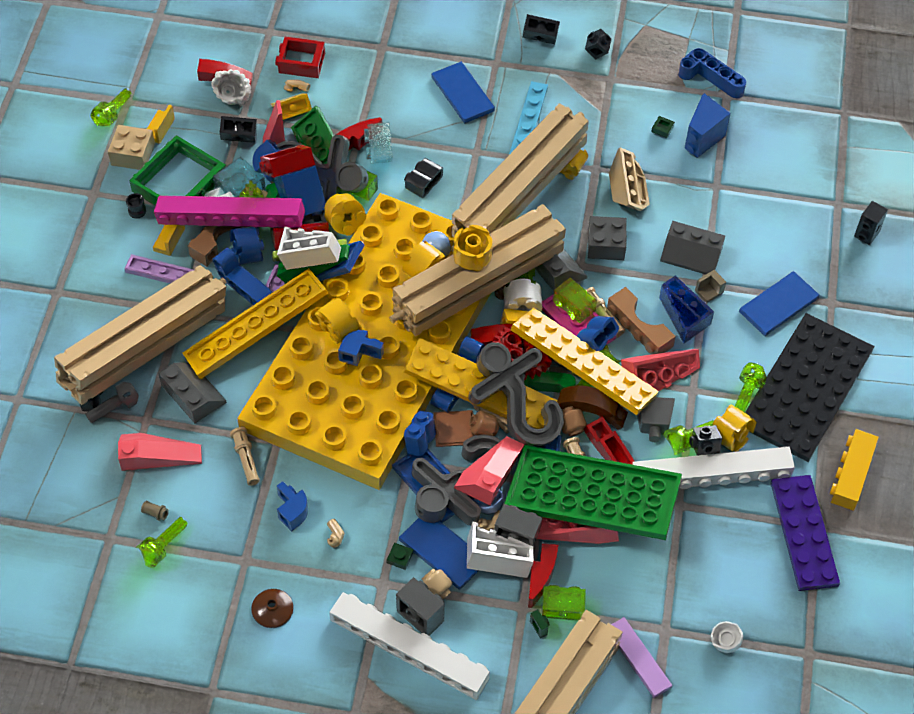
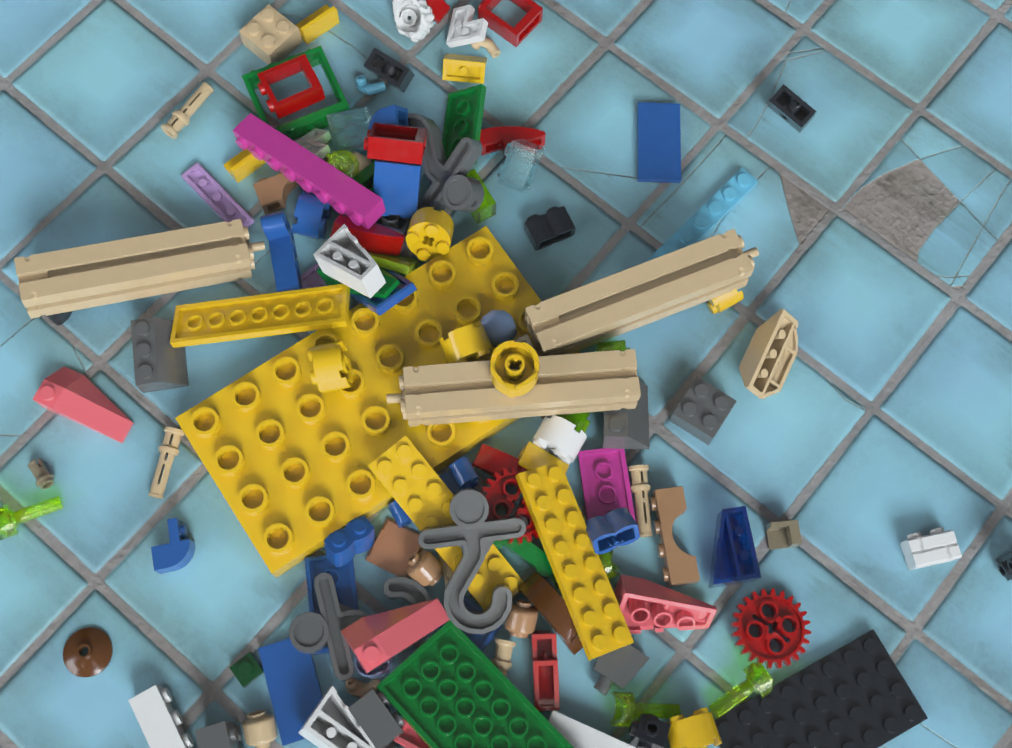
camera: 30 degrees right, 15 degrees up
(103, 206) = (182, 117): none -> tan pin
(115, 401) = (83, 326): dark grey piece -> none
(136, 205) = (234, 107): black wheel -> none
(182, 154) = (297, 101): none -> red window
(228, 150) = (368, 88): none -> medium azure arm
(273, 81) = (463, 29): none -> white plate
(275, 128) = (421, 94): coral wedge -> none
(337, 533) = (200, 607): tan arm -> none
(357, 344) = (333, 406): blue brick -> none
(574, 300) = (614, 473): clear neon green brick -> none
(598, 44) = (846, 159): black brick -> none
(663, 126) = (856, 301): dark green plate -> none
(692, 248) = (792, 476): dark grey slope -> none
(706, 126) = (905, 330): blue slope -> none
(714, 71) = (972, 290): blue beam -> none
(740, 344) = (781, 609): none -> red gear
(779, 303) = (851, 598): blue tile -> none
(809, 248) = (930, 549): none -> white brick

